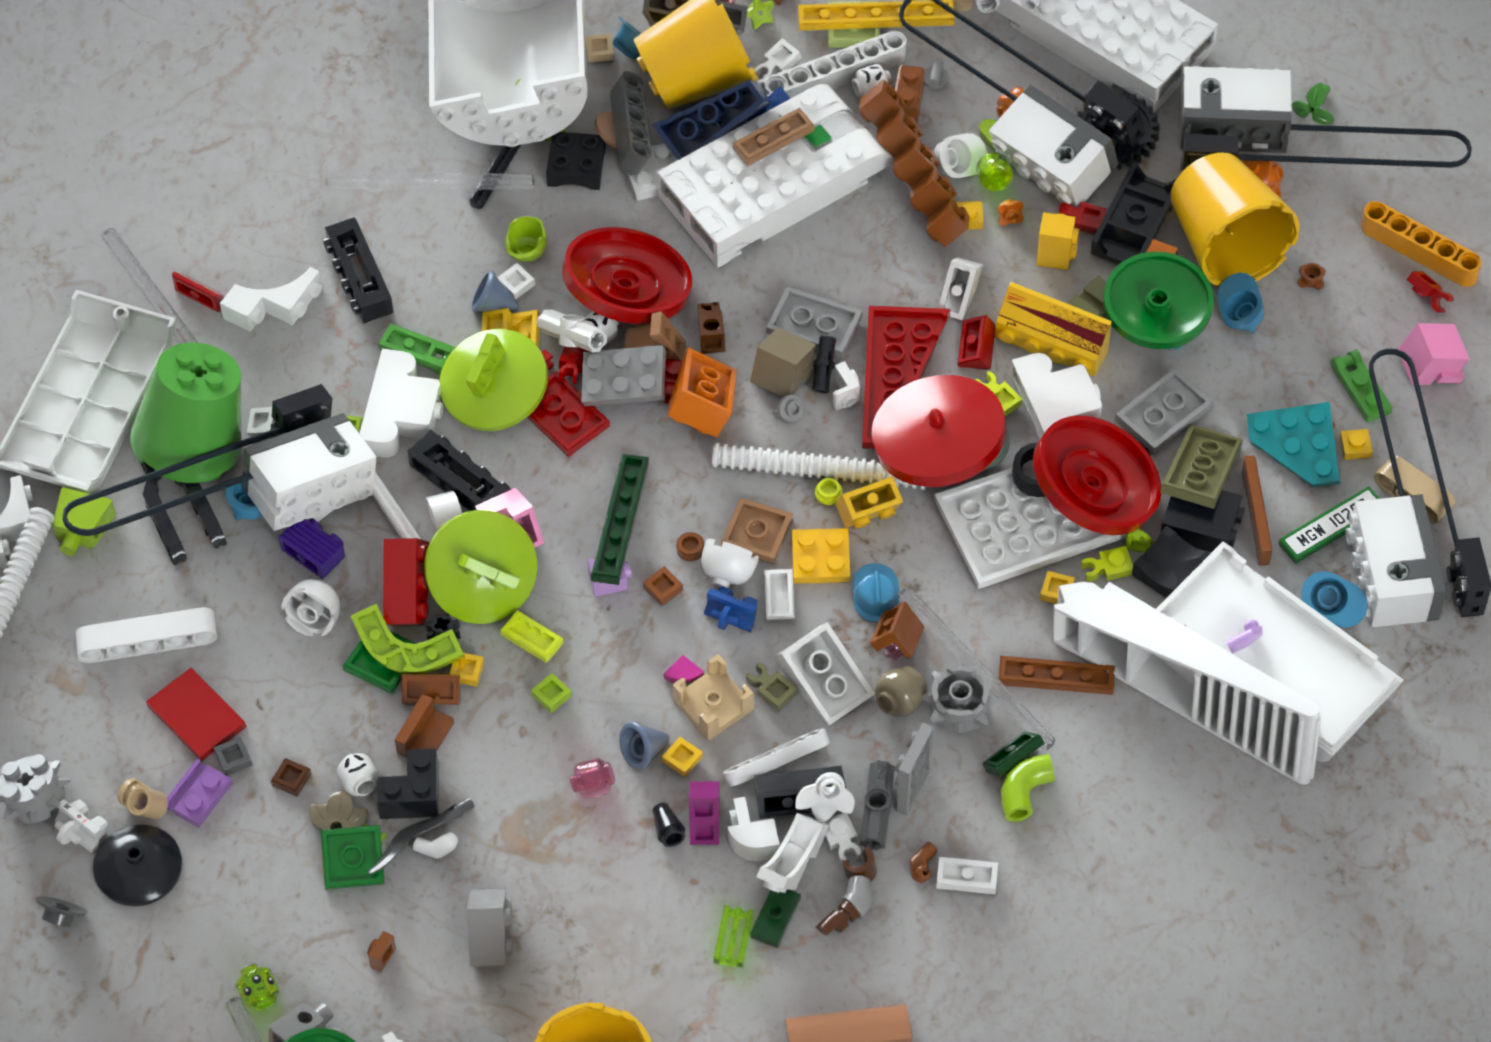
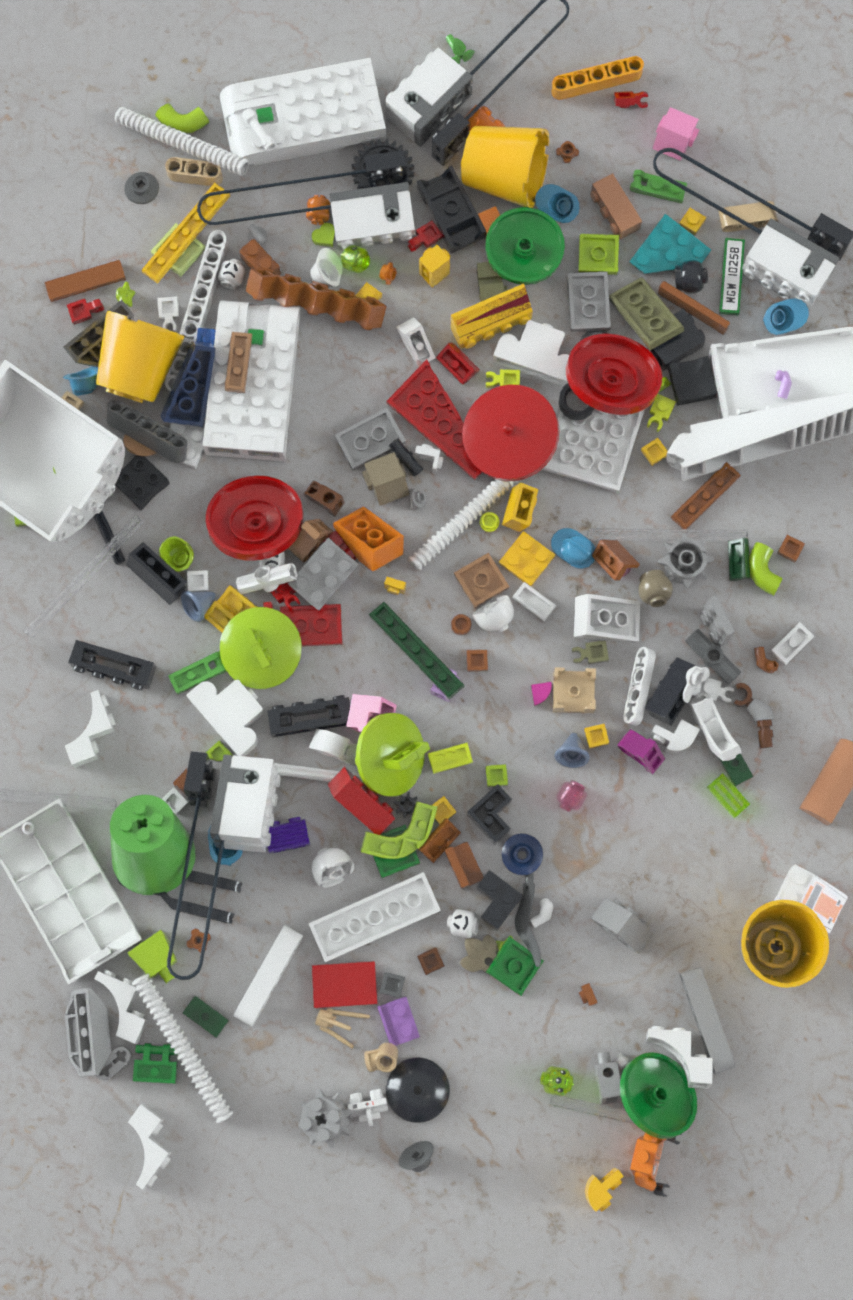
camera: 50 degrees left, 20 degrees up
(54, 612) = (205, 1016): none -> dark green plate
(131, 555) = (196, 934): none -> dark orange plate
(143, 724) = (327, 1020): none -> tan plant
(197, 291) = (45, 767): red slope -> none
(294, 688) = (374, 917): none -> white plate
(480, 766) = (524, 843): none -> dark blue dish
(489, 235) = (156, 573): none -> black brick
(500, 707) = (486, 813): none -> black brick
(668, 826) = (633, 777): black cone -> none
(674, 454) = (394, 586): none -> yellow plate
(730, 610) = (526, 637): blue hips -> none
(1076, 797) = (791, 548): none -> dark orange plate
(1227, 381) = (598, 253): none -> lime plate
(1285, 479) = (691, 276): none -> black piece
(1294, 360) = (615, 206): none -> nougat brick

